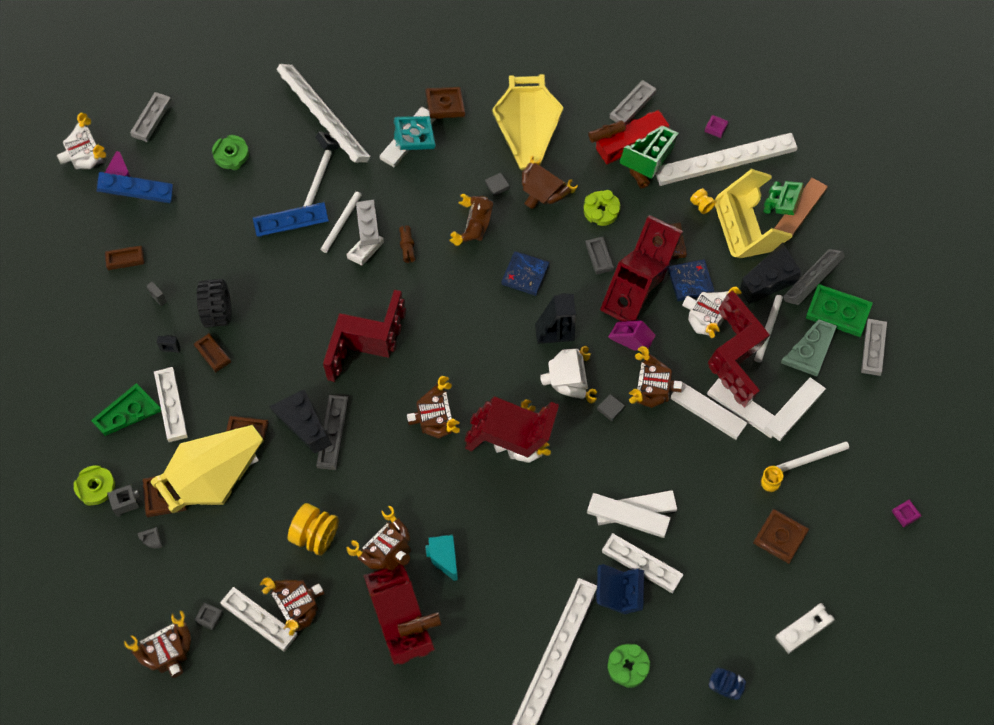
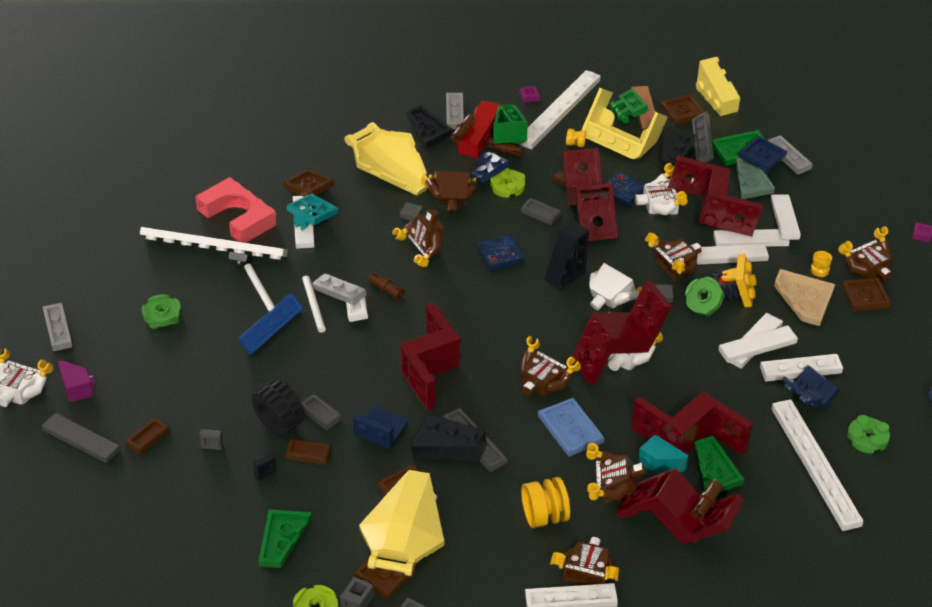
camera: 45 degrees left, 20 degrees down
(82, 227) = (81, 438): none -> dark grey tile
(134, 187) = (104, 376): blue plate -> none
(170, 404) = (321, 508): white plate -> none
(252, 324) = (321, 412): none -> dark grey tile
(276, 370) = (379, 426): none -> dark blue bracket
(375, 111) = (231, 194): none -> coral arch
(411, 475) = (570, 426): none -> medium blue tile
(475, 599) = (716, 465): none -> green wing
(486, 549) = (692, 423): none -> dark red bracket
(595, 106) = (428, 126): none -> black wing
(601, 185) = (489, 166): none -> dark blue plate
(632, 334) = (625, 240): magenta slope -> none
(640, 444) = (711, 303): none -> bright green plate
(675, 444) = (738, 280): none -> yellow plate
(724, 499) = (805, 295): none -> tan plate
(813, 456) = (831, 233): white bar -> none
(819, 507) = (870, 259): none -> torso
(834, 232) = (681, 109): none -> reddish brown tile
(844, 332) = (763, 154): none -> dark blue plate
(883, 232) = (716, 88): none -> light yellow wedge

